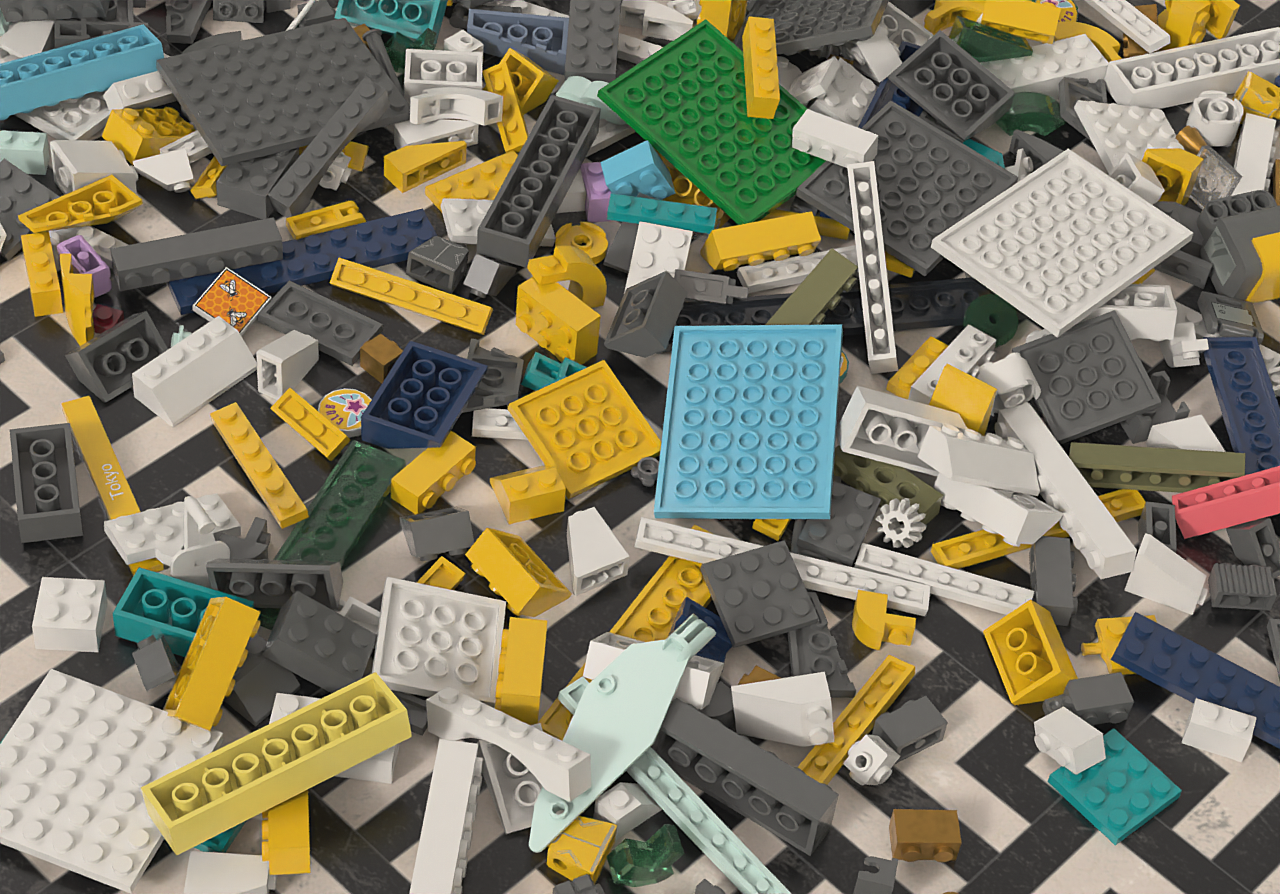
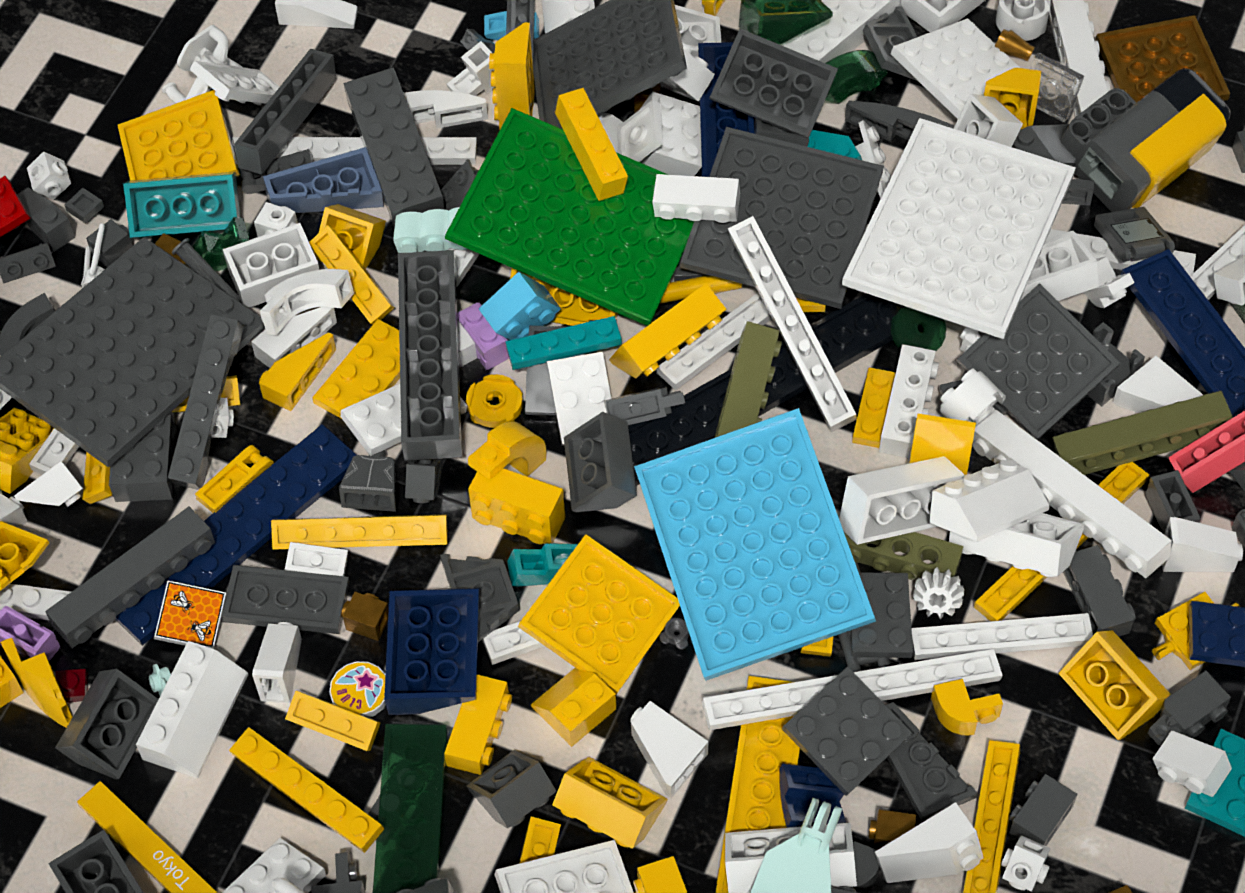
camera: 15 degrees left, 10 degrees up
(362, 301) = (316, 559): none -> white plate

